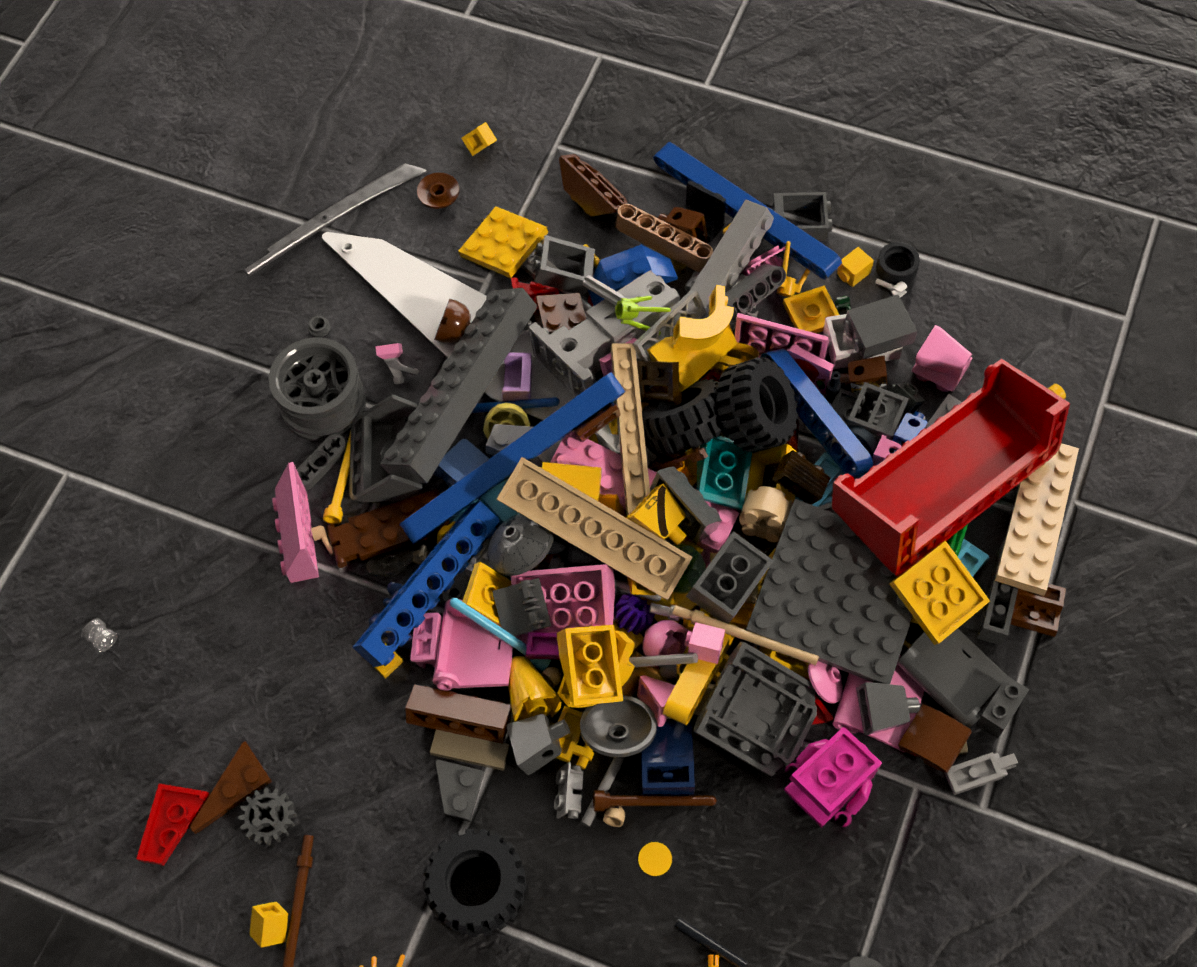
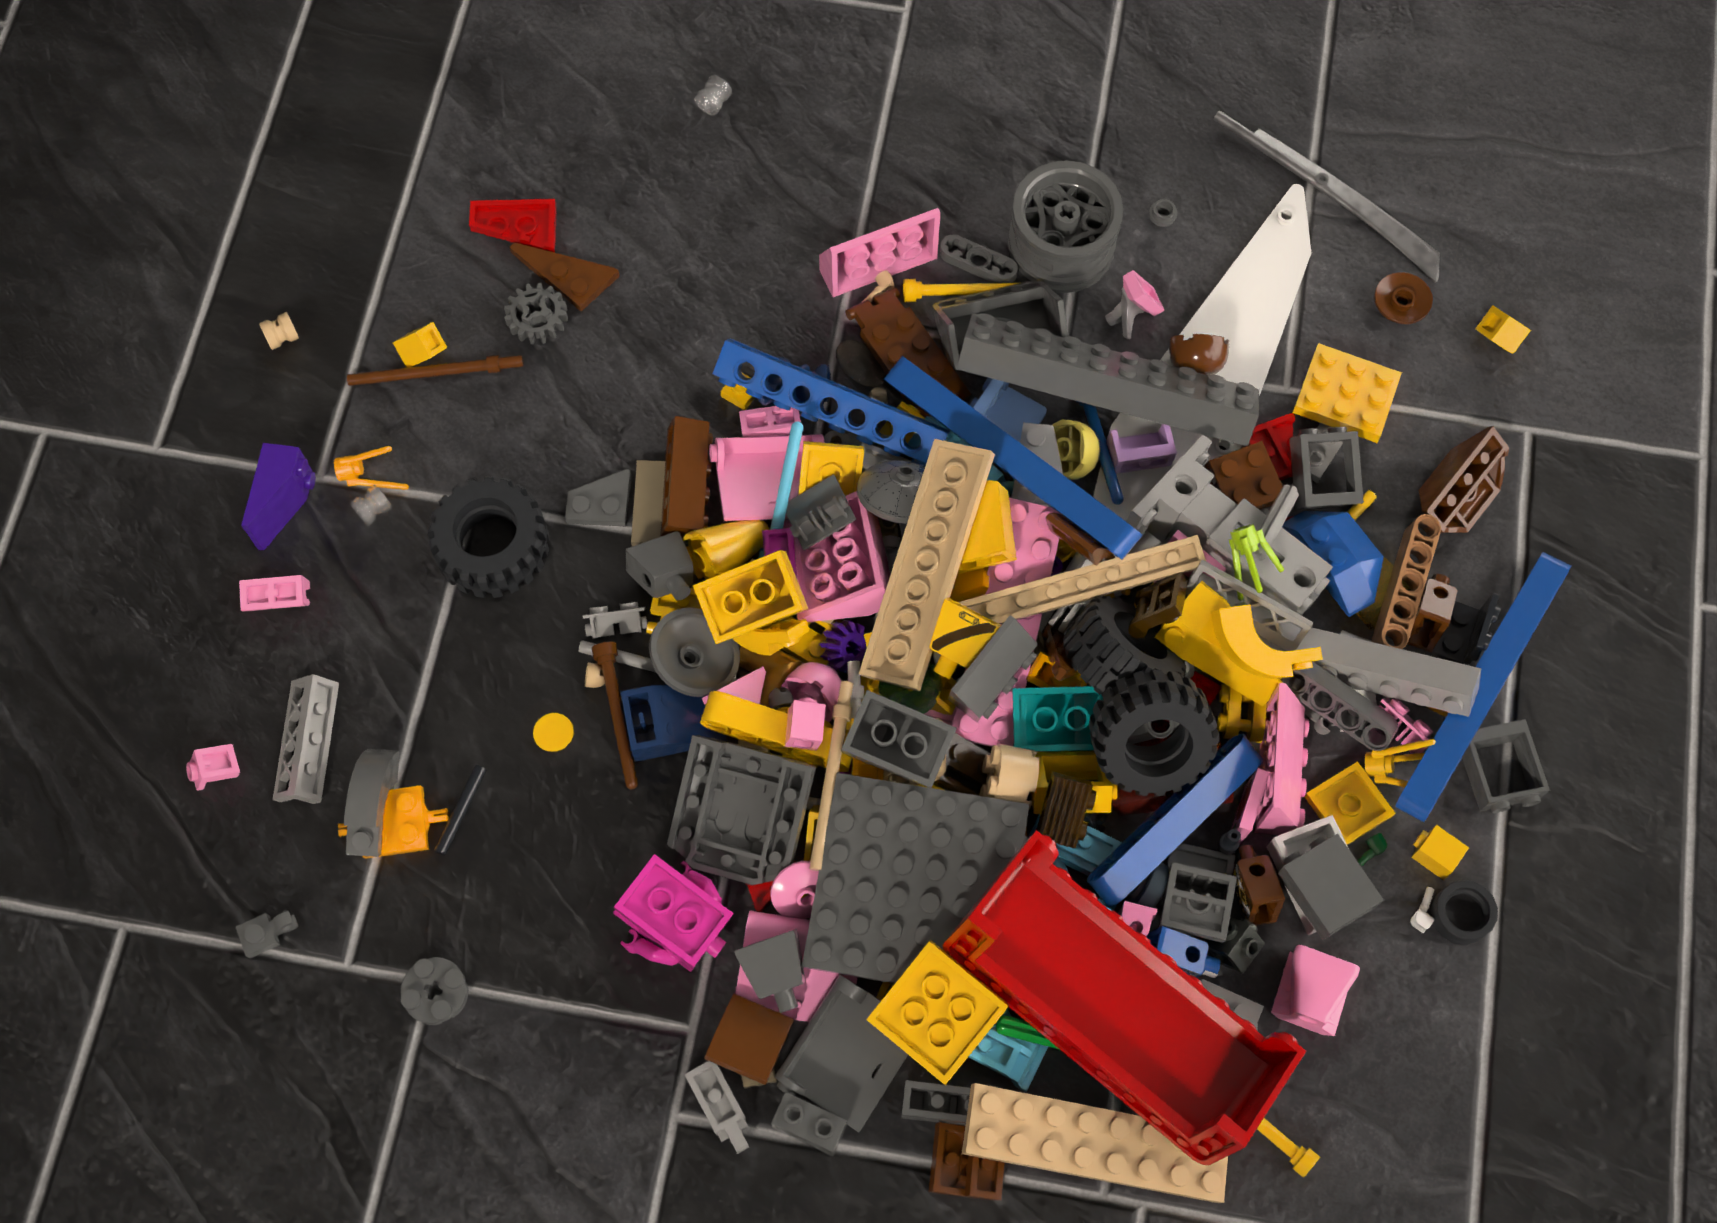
camera: 75 degrees right, 5 degrees up
(664, 660) = (781, 679): light grey bar -> none

